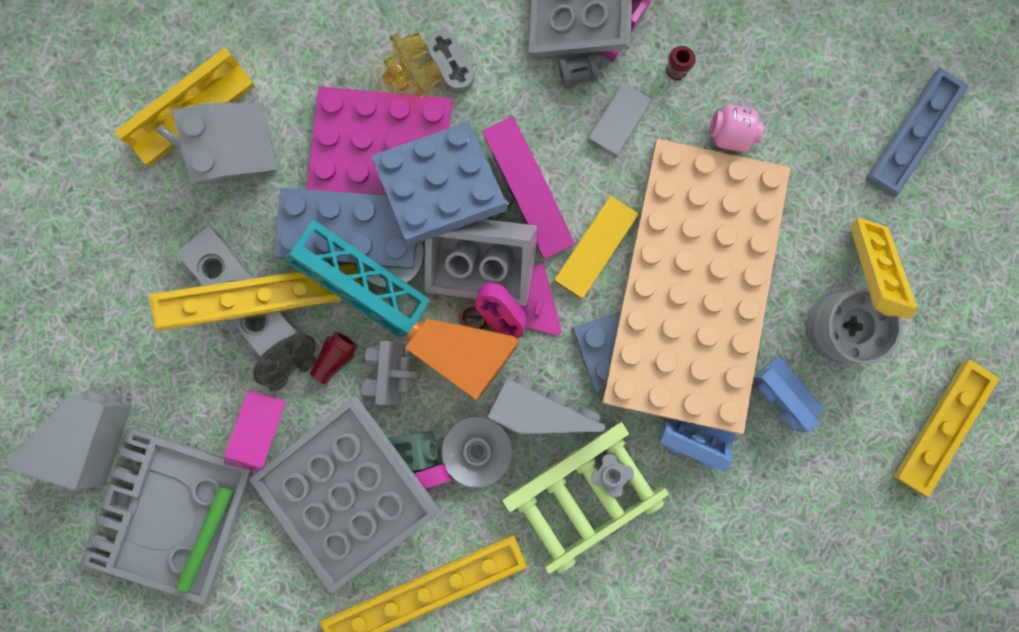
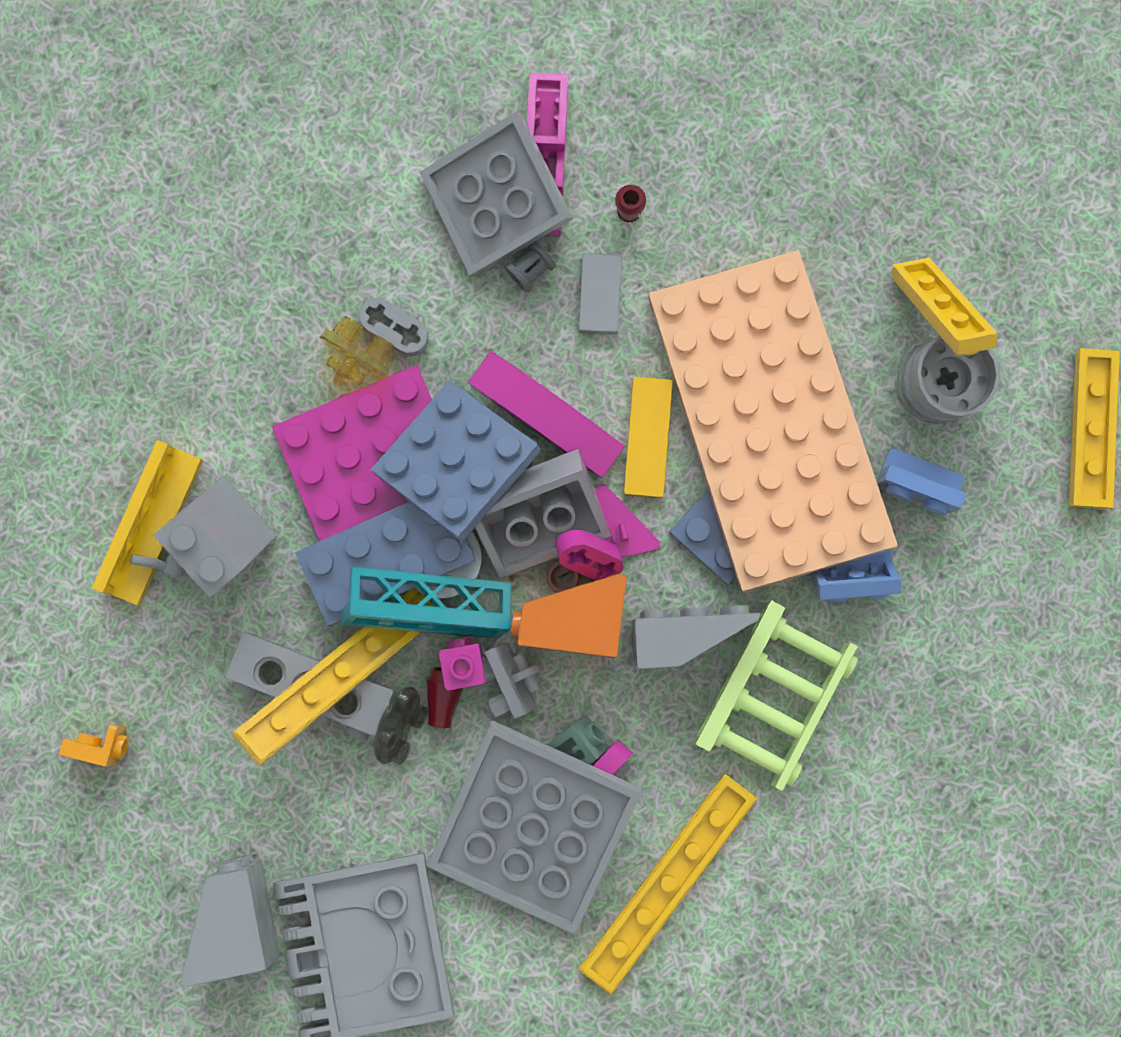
camera: 30 degrees left, 0 degrees up
(54, 255) = (89, 747): none -> light orange bracket
(204, 539) = (417, 950): bright green bar -> none
(254, 432) = (407, 814): dark pink hinge -> none
(358, 340) = (462, 664): none -> dark pink bracket
(471, 470) = (664, 707): light grey dish -> none
(614, 485) = (782, 666): light grey plate -> none
(736, 128) = (722, 240): bright pink head -> none
(917, 132) = (906, 144): sand blue tile -> none

